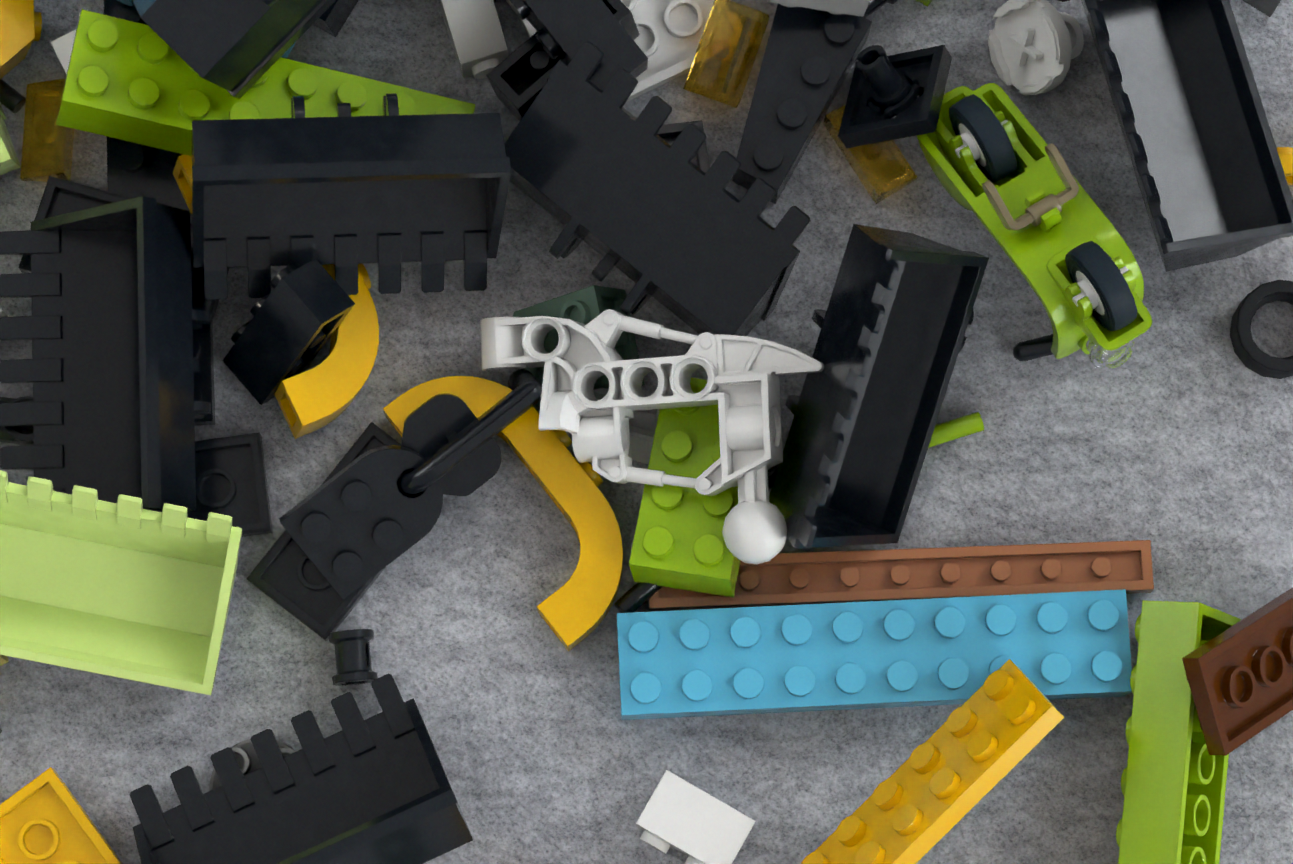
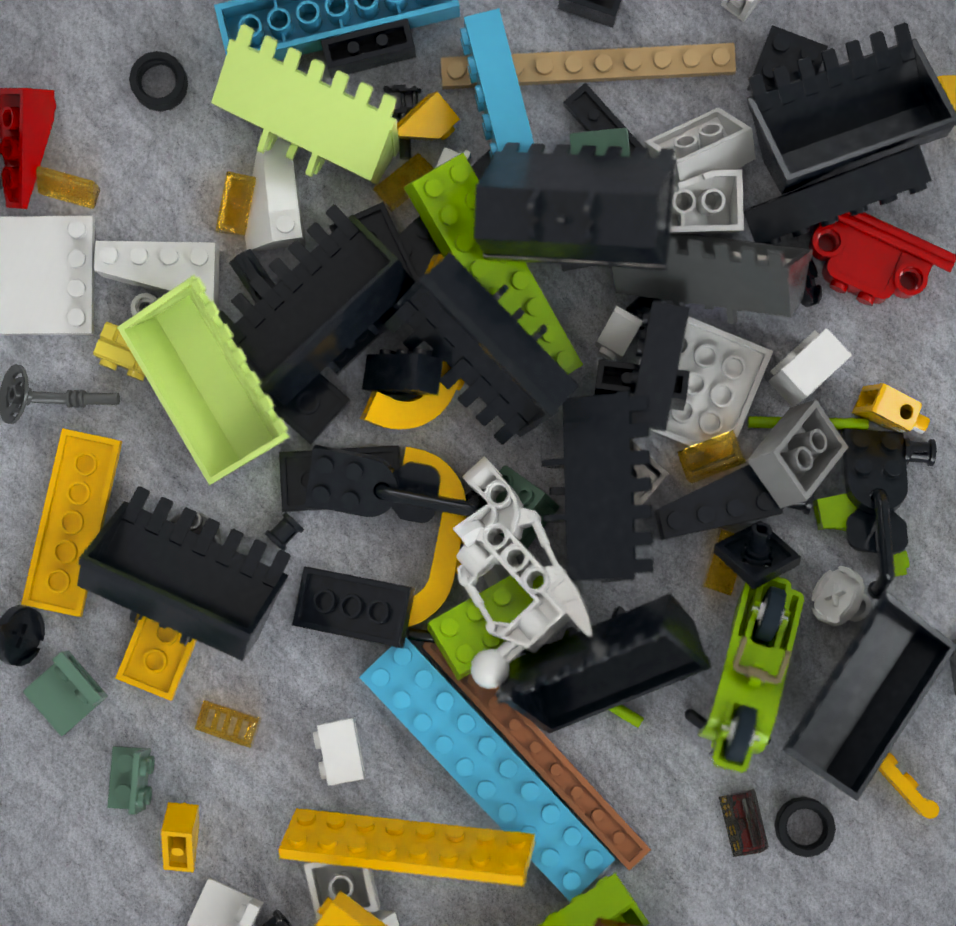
camera: 55 degrees right, 5 degrees up
(526, 648) = (354, 607): none -> black tile
(1212, 401) = (744, 823): none -> clear smoke slope

